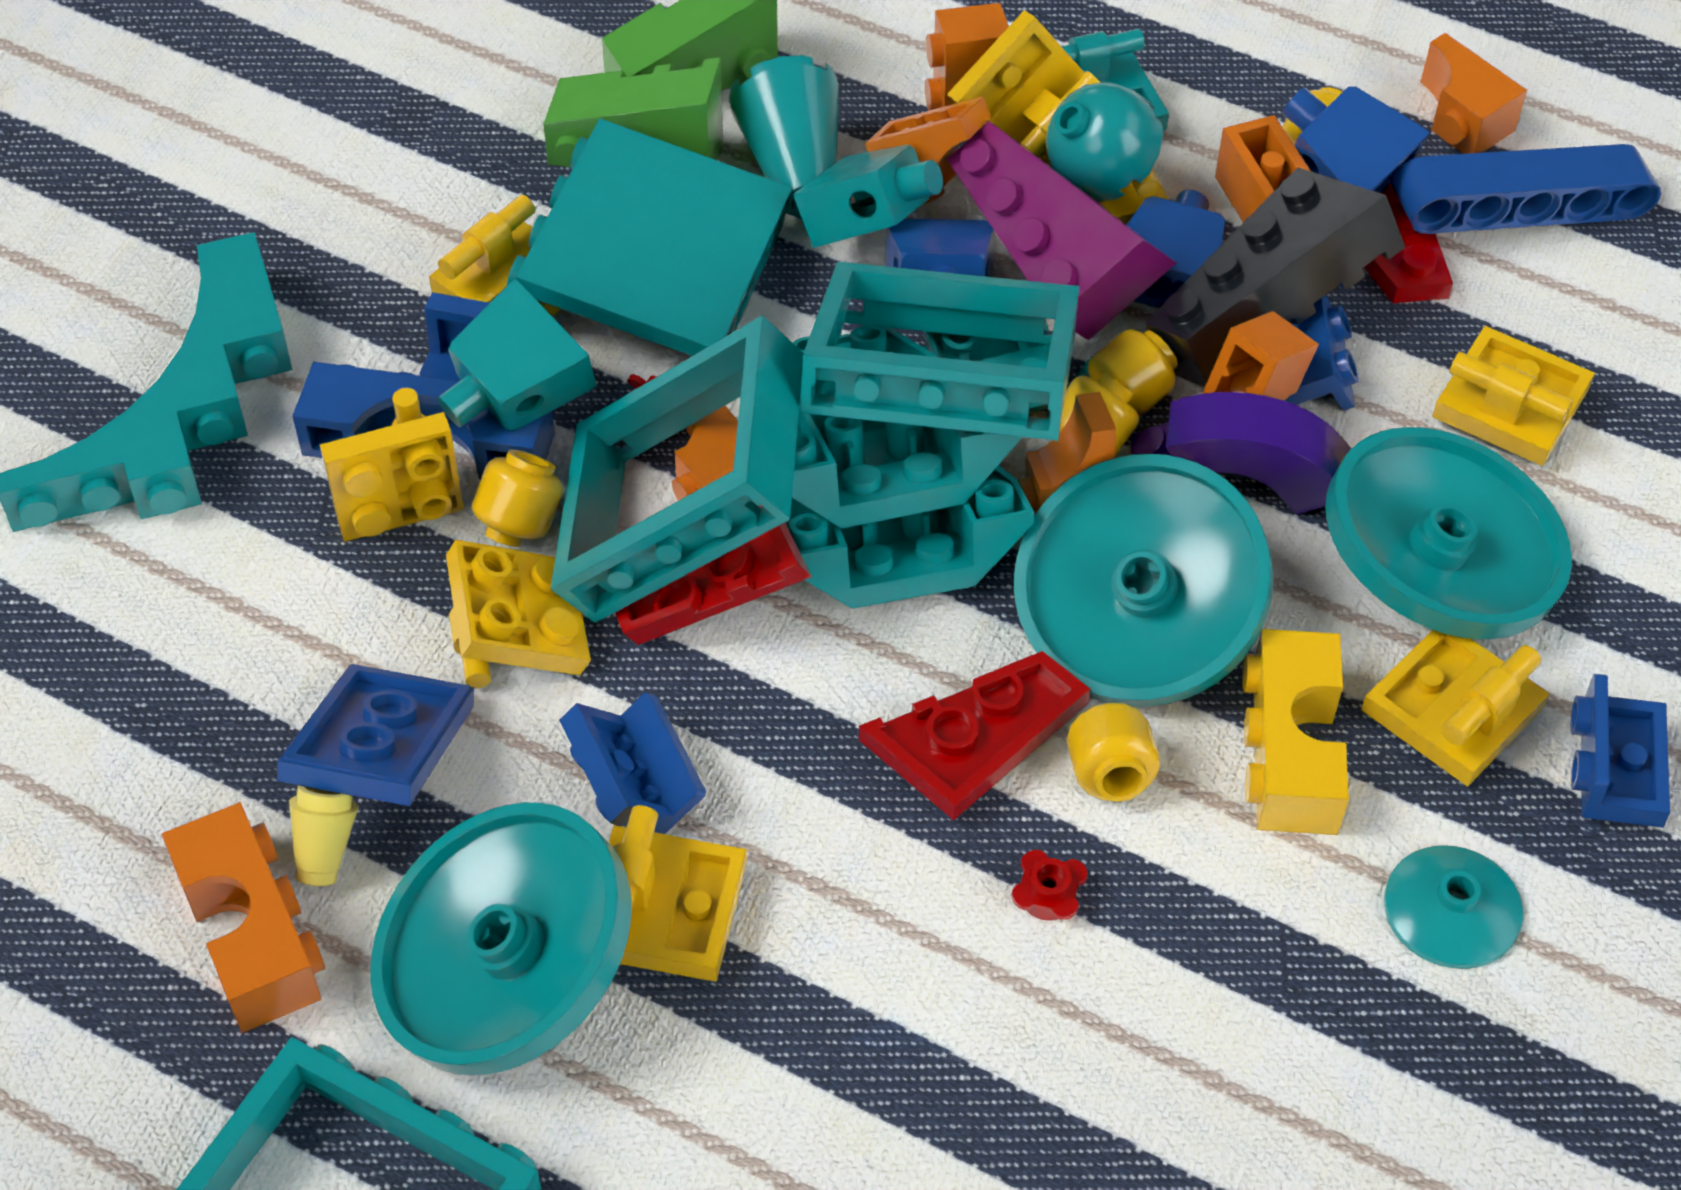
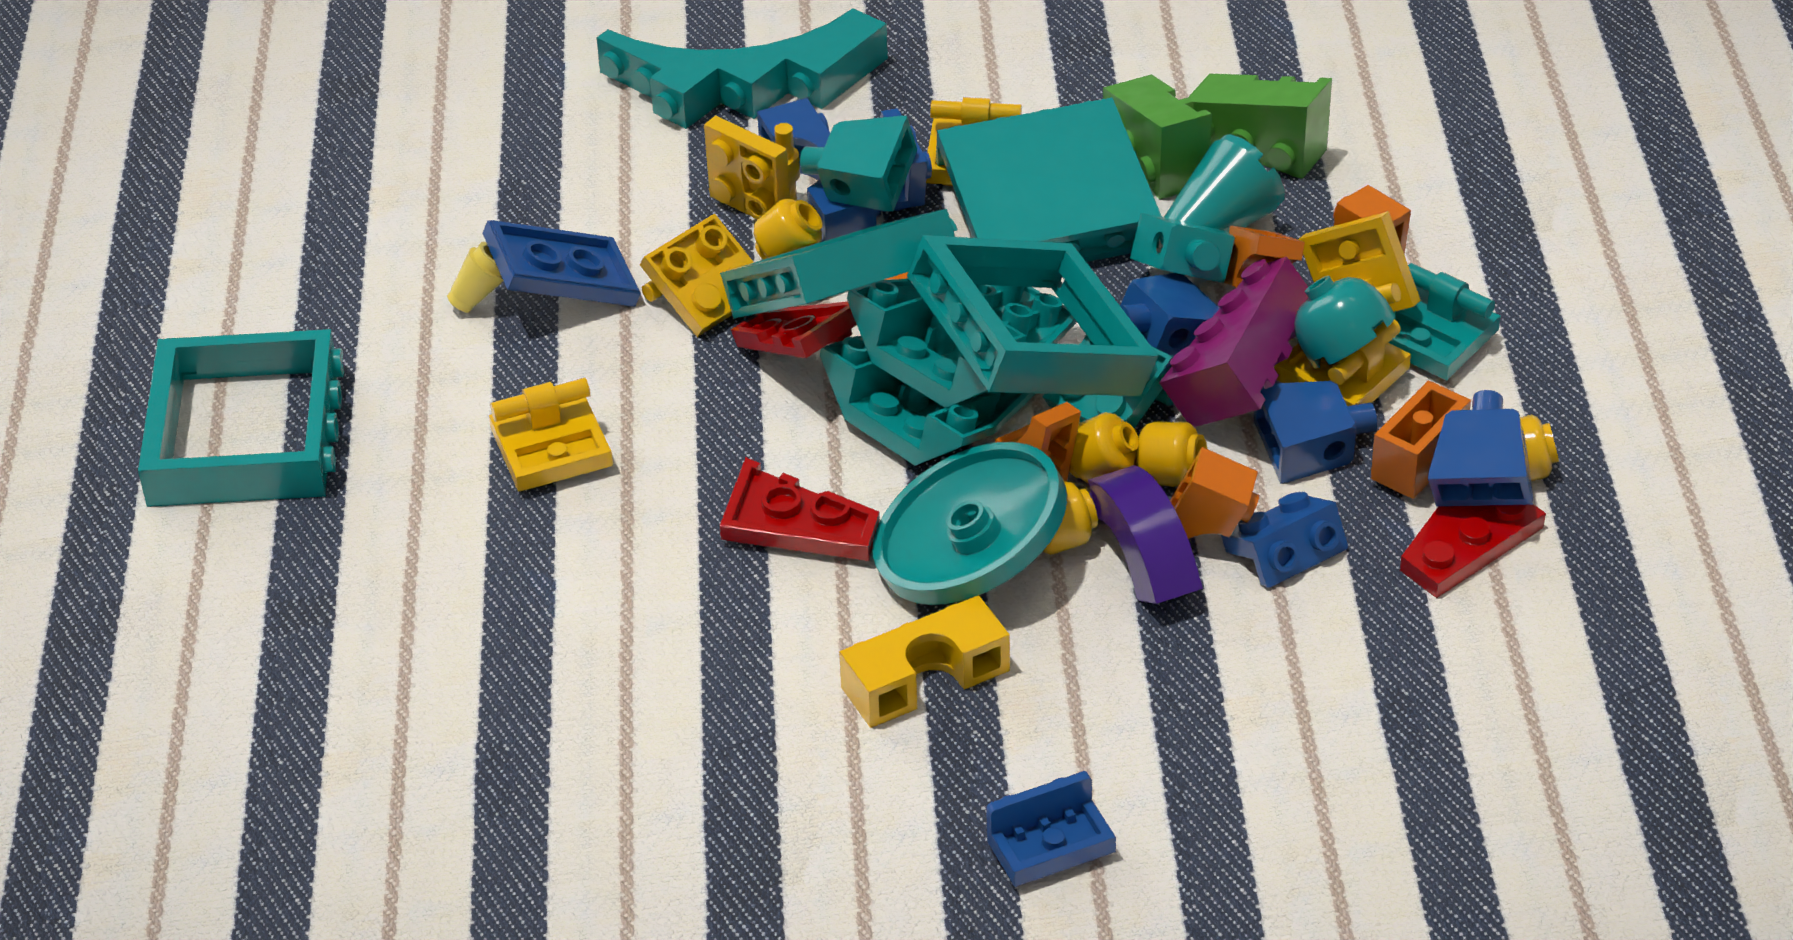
camera: 60 degrees right, 10 degrees down
(264, 961) = (387, 306): orange arch -> none
(501, 939) = (457, 373): teal dish -> none
(634, 761) = (631, 375): blue bracket -> none
(1049, 902) = (703, 601): red plate -> none
(1113, 752) = (826, 579): yellow head -> none
(1279, 260) = (1316, 458): black wedge -> none
(1447, 928) = (857, 806): teal dish -> none
(1448, 533) = (1163, 659): teal dish -> none
(1458, 701) = (1023, 732): yellow plate -> none
(1473, 97) = (1645, 517): orange arch -> none
(1512, 395) = (1352, 655): yellow plate -> none
(1525, 188) = (1571, 578): blue beam -> none

